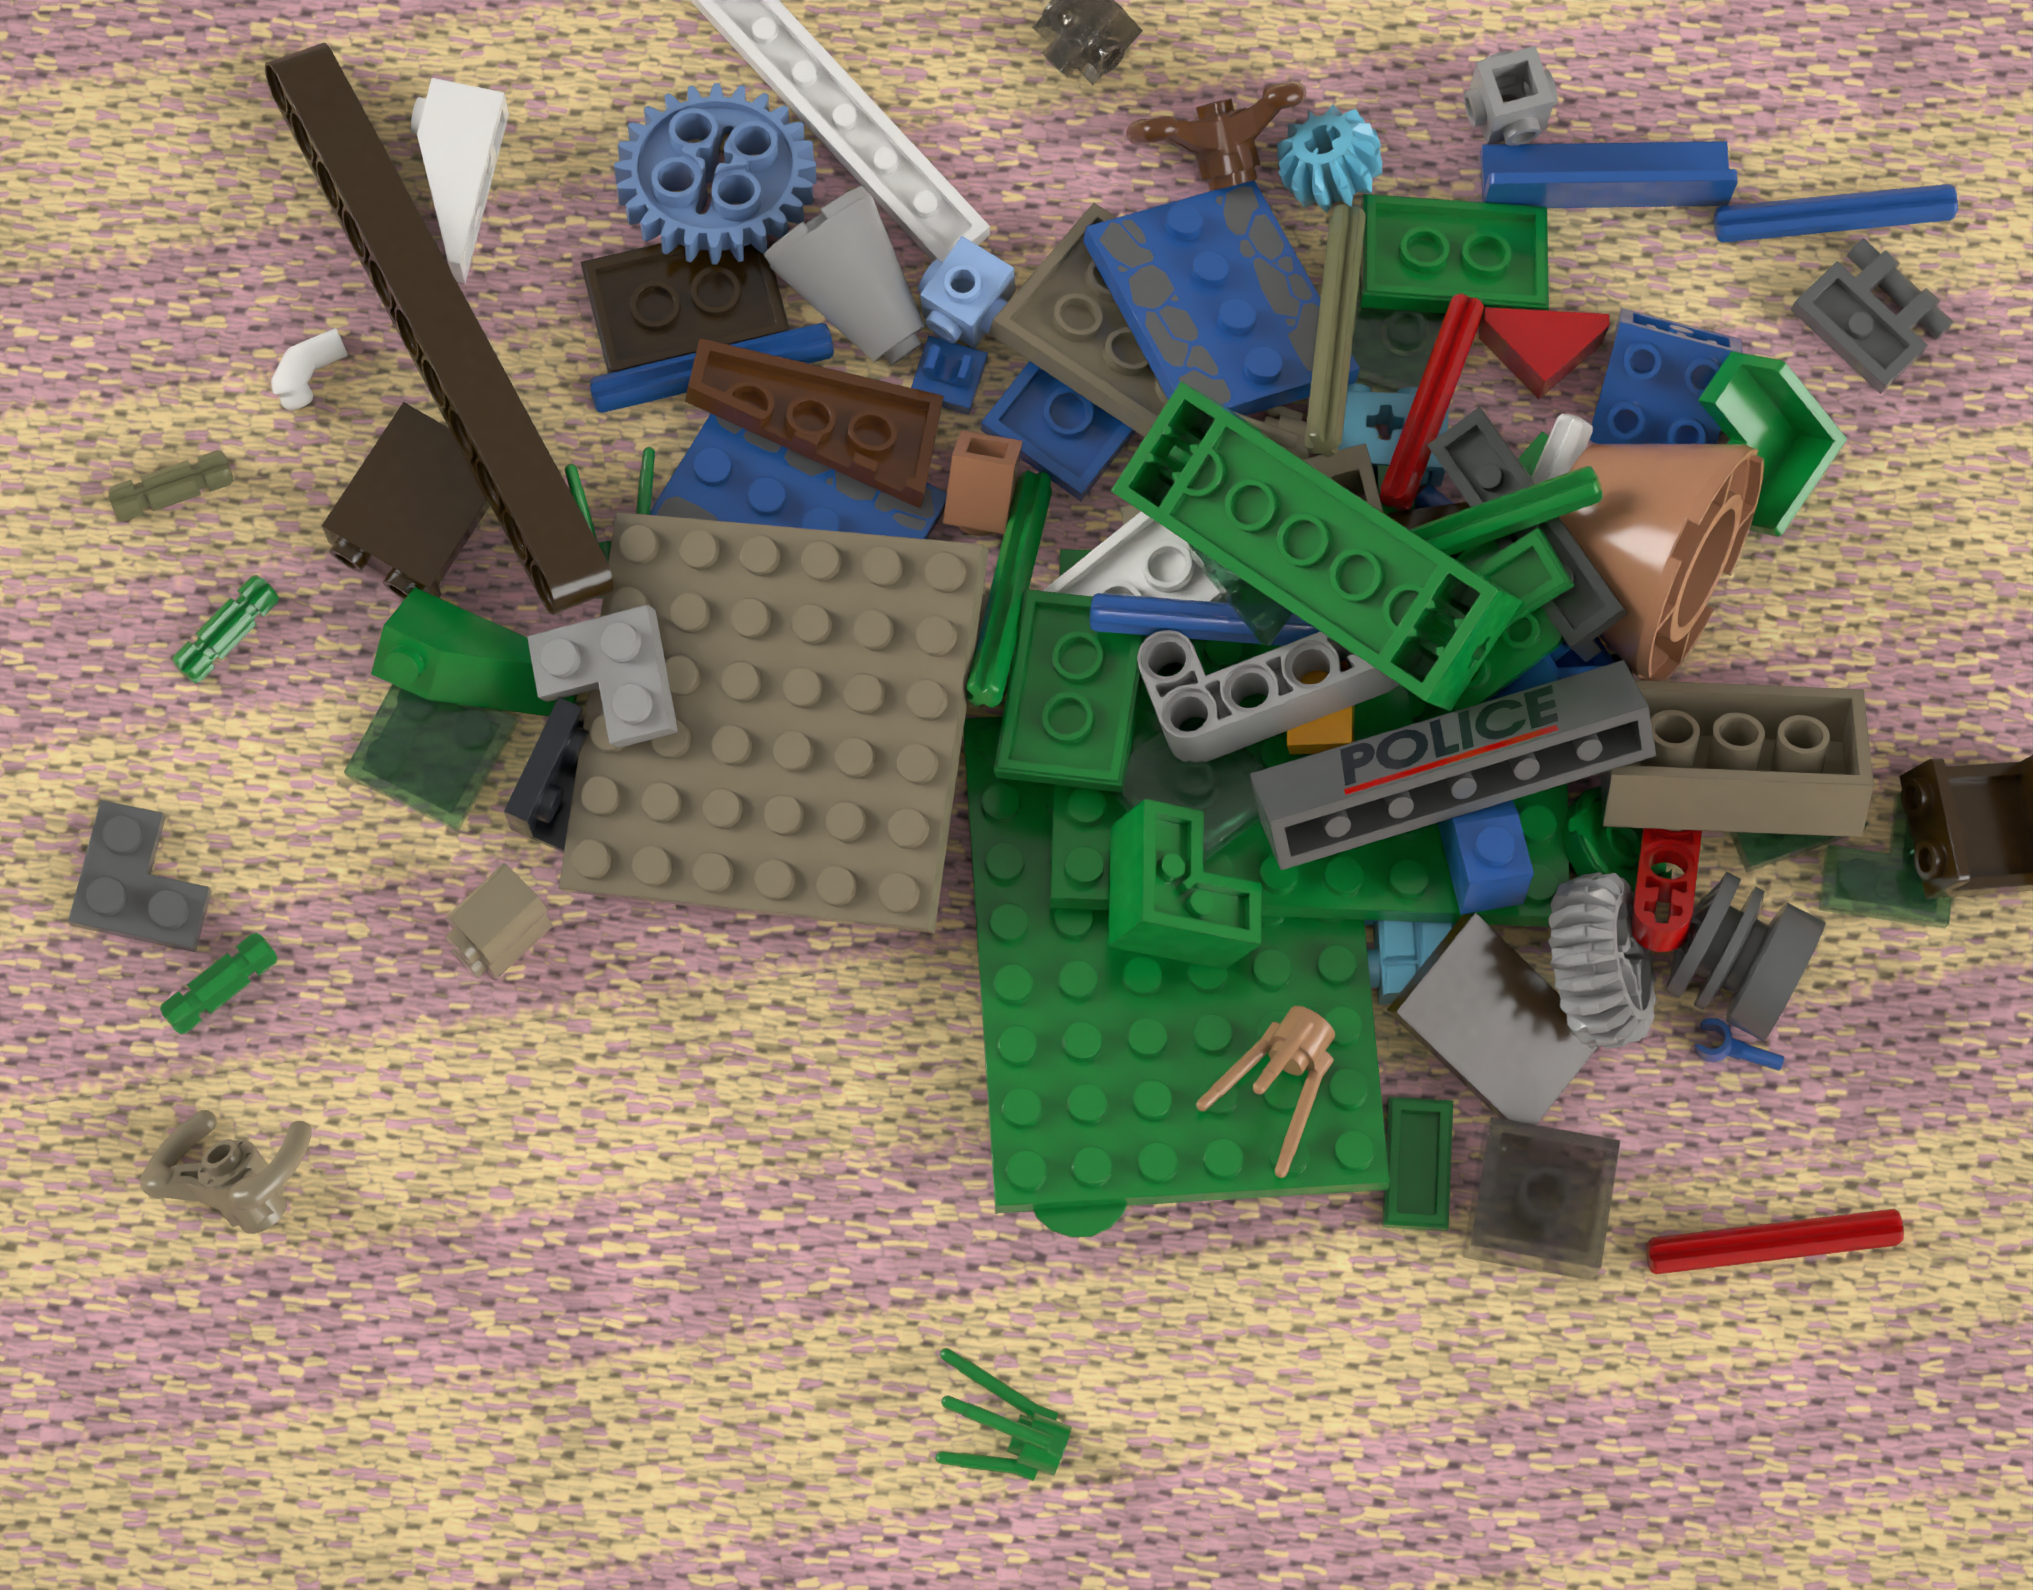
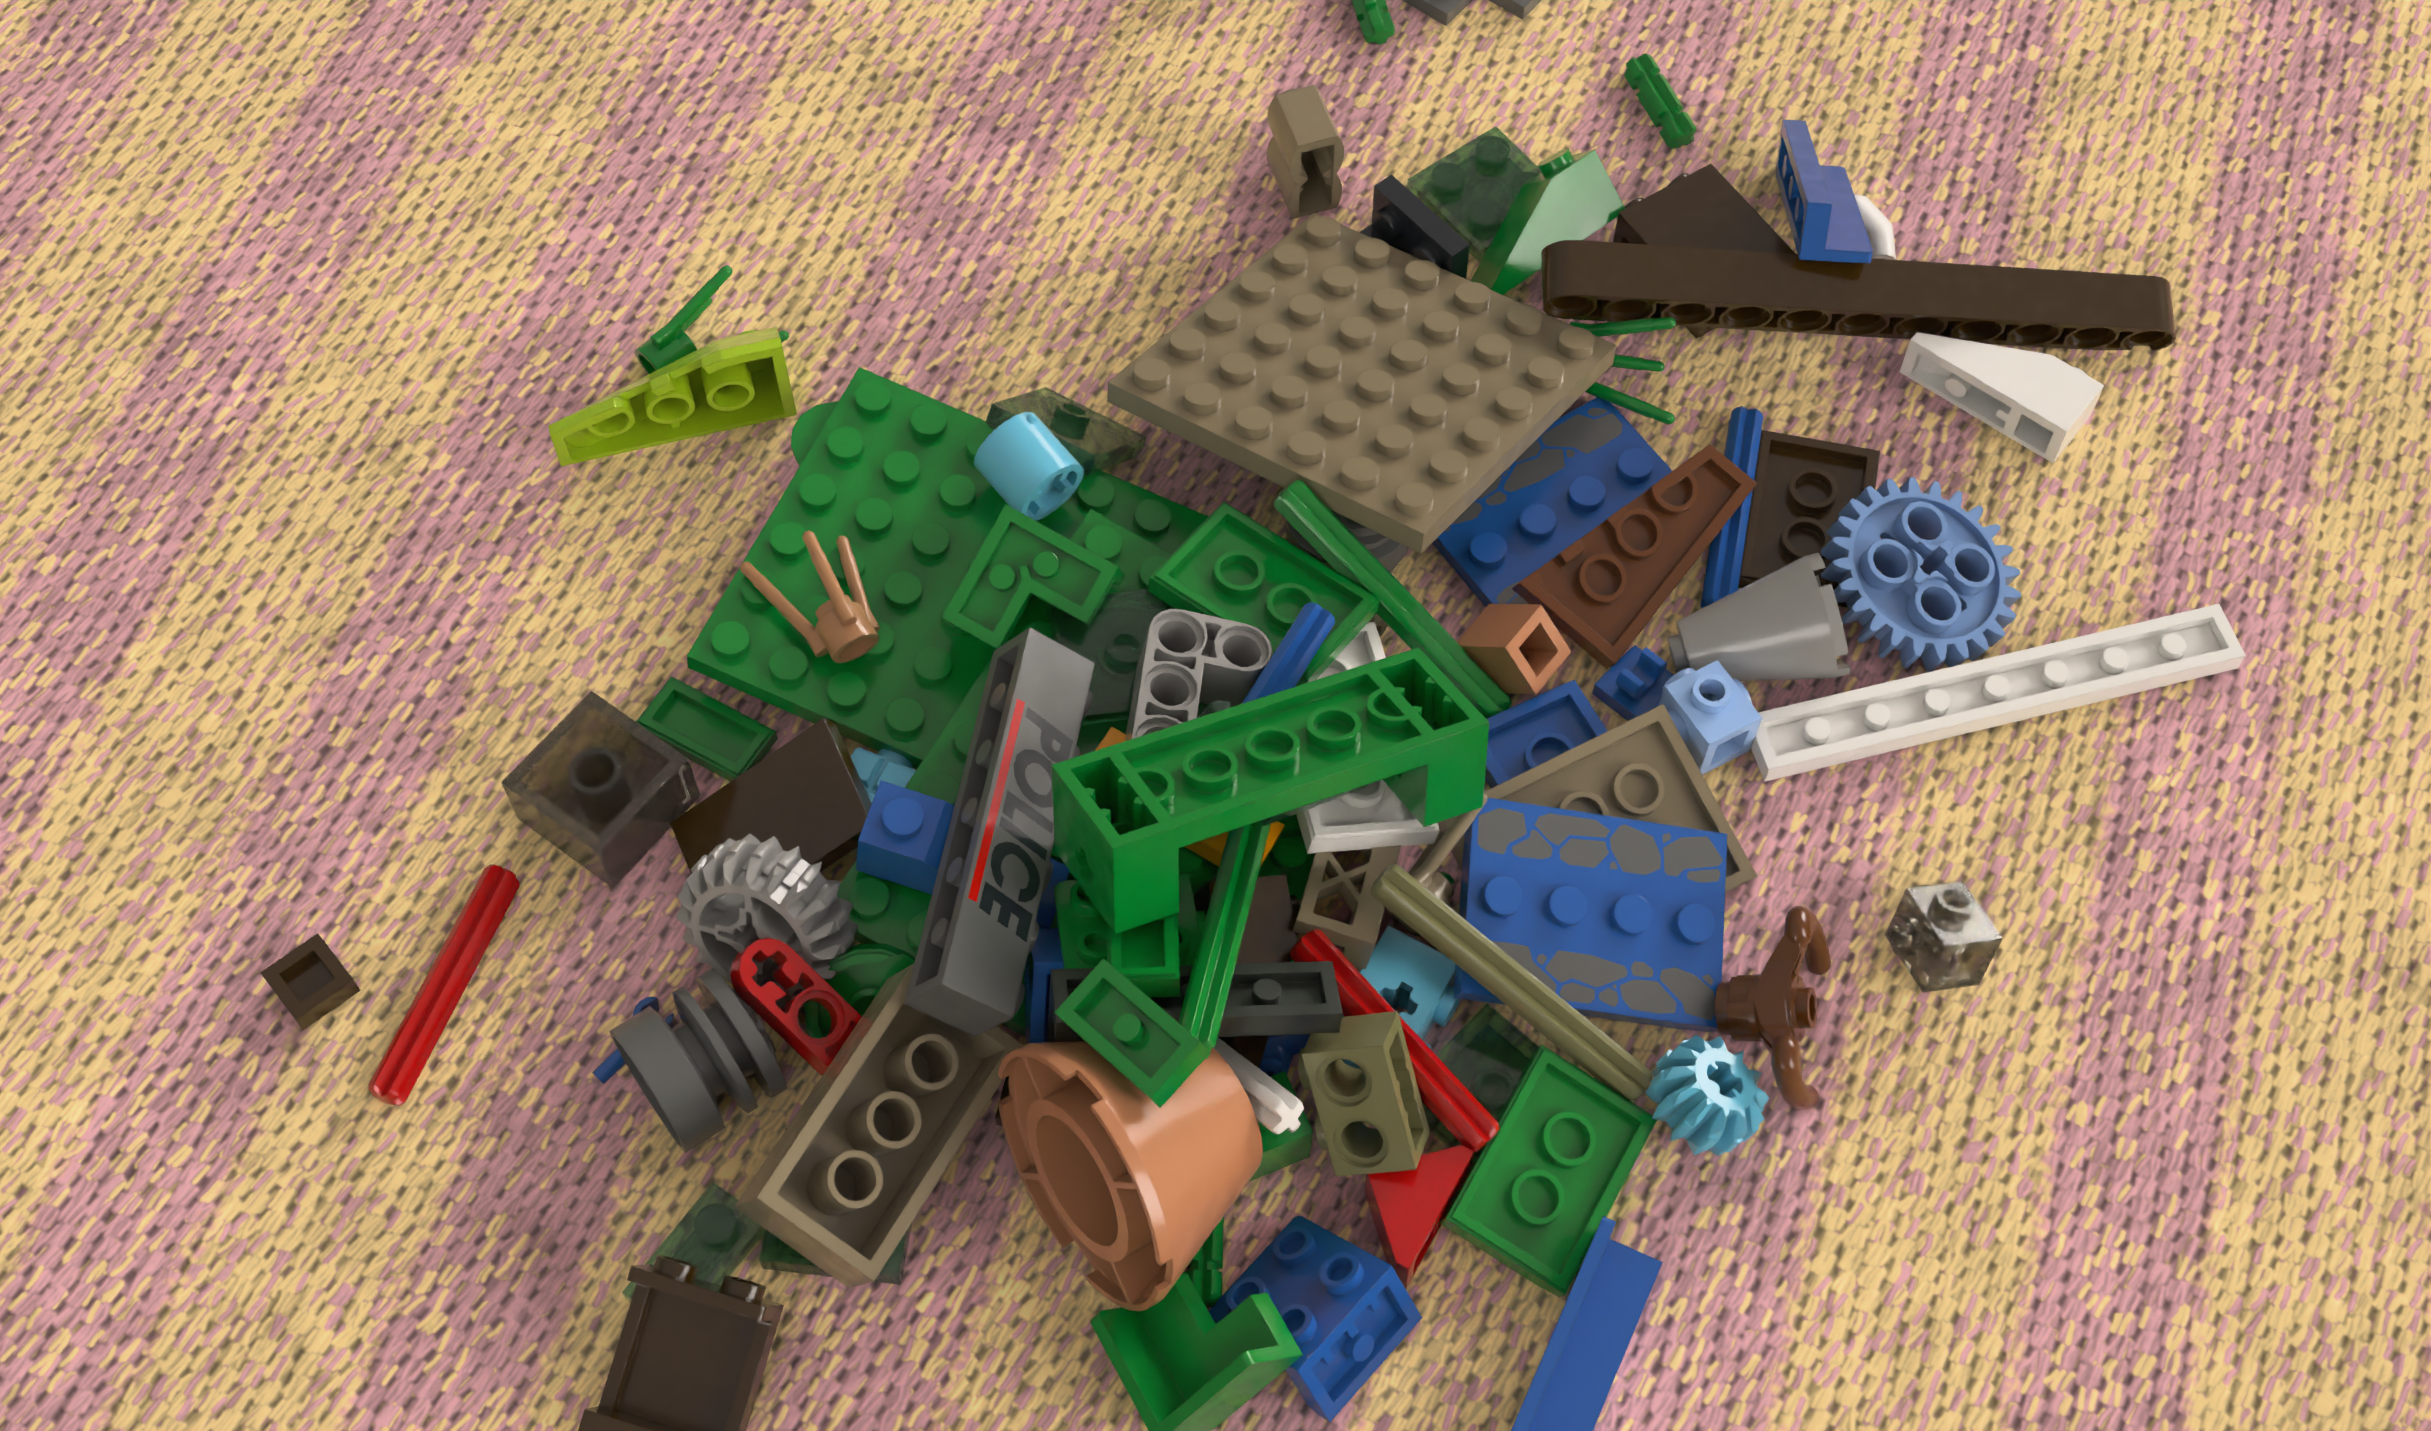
camera: 120 degrees right, 15 degrees down
(170, 485) = (1805, 97): olive axle -> none
(334, 399) = (1818, 202): none -> blue panel
(620, 658) = (1476, 290): light grey plate -> none
(946, 991) = (1086, 434): none -> plate
(1044, 967) = (1028, 466): none -> medium azure piece
(1049, 1355) = (703, 393): none -> lime wedge
(1507, 385) = (1378, 1094): none -> olive brick
(1521, 82) = (1704, 1280): light grey brick -> none
(1616, 529) = (1132, 1033): none -> green plate
(1840, 1354) = (310, 981): none -> dark brown plate

